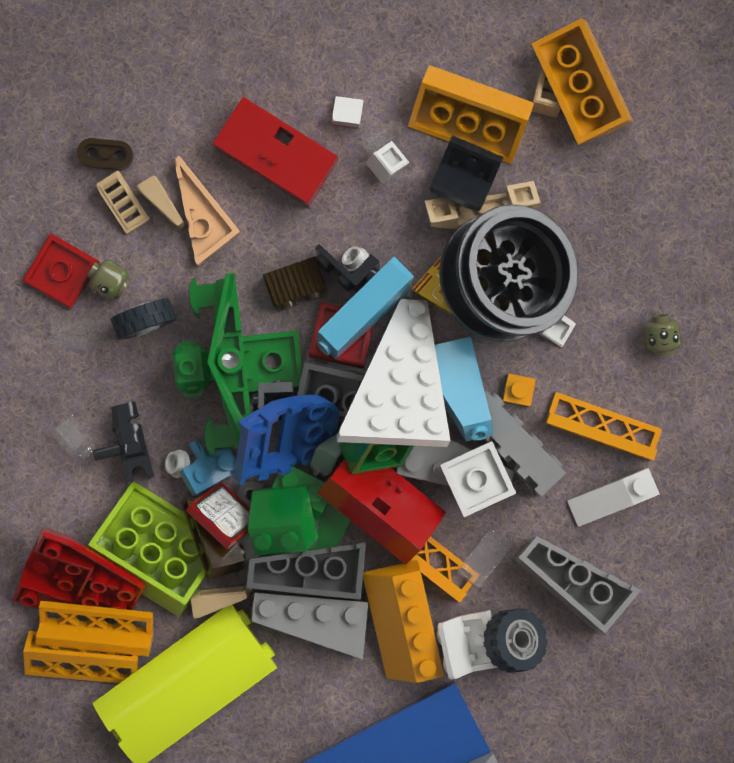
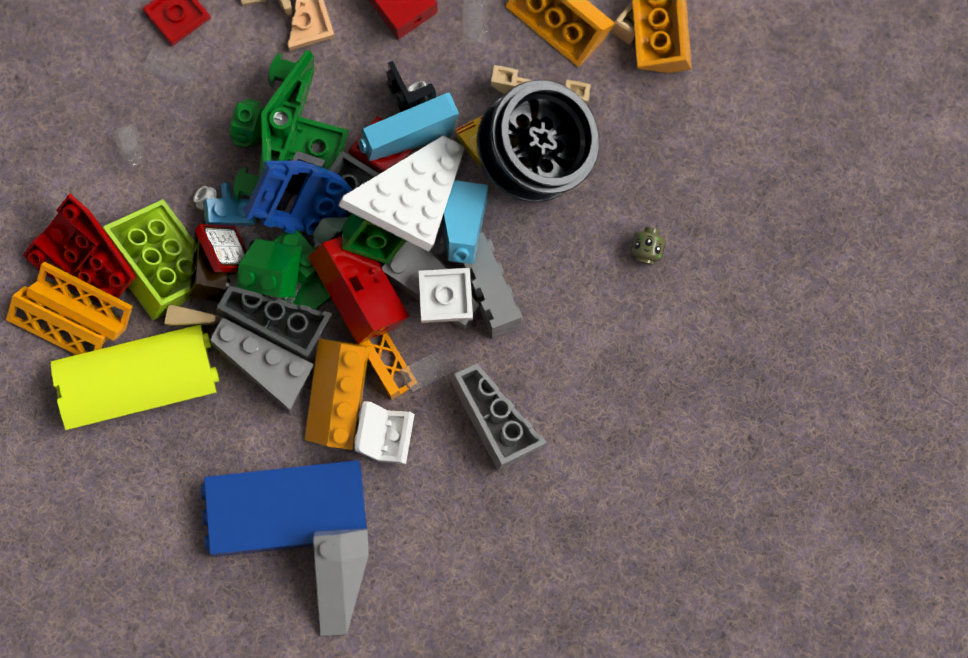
camera: 15 degrees right, 10 degrees down
(108, 280) = (211, 32): olive head -> none
(129, 442) = (172, 166): black piece -> none
(143, 318) = (226, 69): black wheel -> none
(295, 283) = (361, 91): dark brown brick -> none
(387, 162) = (476, 25): white slope -> none
(466, 173) = (537, 55): black bracket -> none
(501, 636) = (411, 445): black wheel -> none
(519, 390) = (511, 246): light orange plate -> none
(559, 332) = (562, 208): white slope -> none
(601, 436) = (564, 308): light orange fence -> none
(613, 497) = (556, 361): white slope -> none

